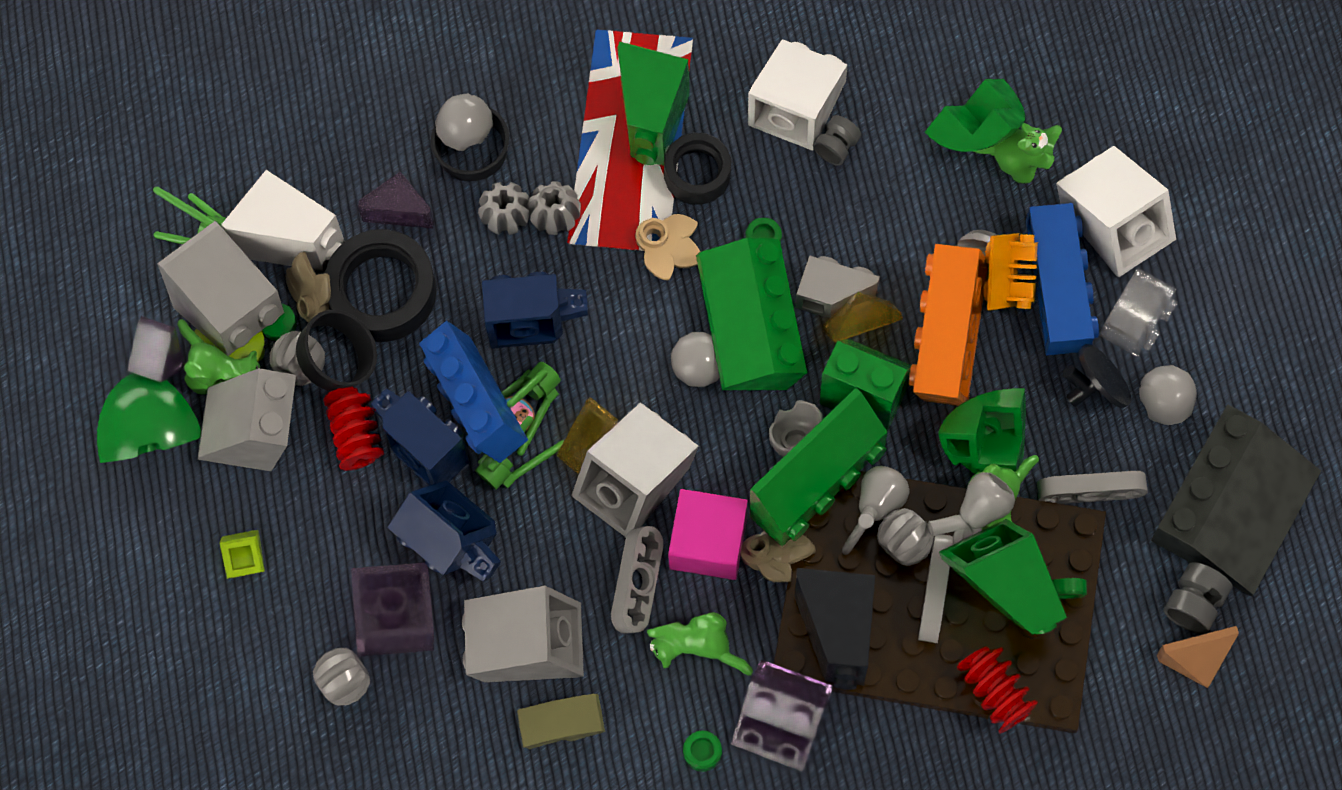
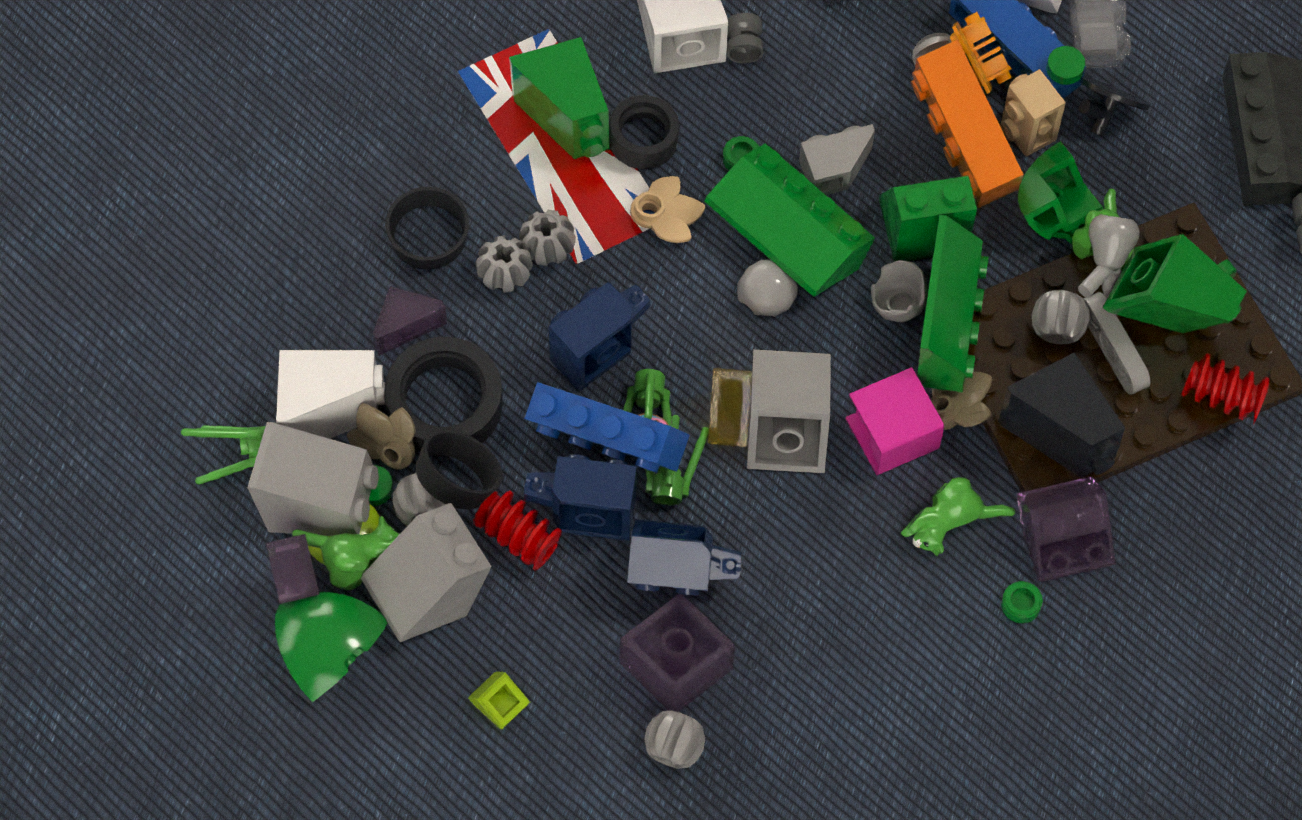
camera: 40 degrees left, 5 degrees down
(463, 121) = (413, 211): light grey hair -> none
(523, 636) = (801, 606): light grey slope -> none
(561, 720) = (887, 654): olive slope -> none
(649, 571) = (861, 498): light grey beam -> none
(861, 315) = (878, 170): clear yellow slope -> none
(881, 493) = (1013, 295): light grey piece -> none
(1019, 348) = (1032, 112): none -> tan brick
(1075, 326) = (1065, 65): none -> green tile
(1092, 487) = (1170, 188): light grey beam -> none
(1168, 394) = (1170, 80): light grey hair -> none

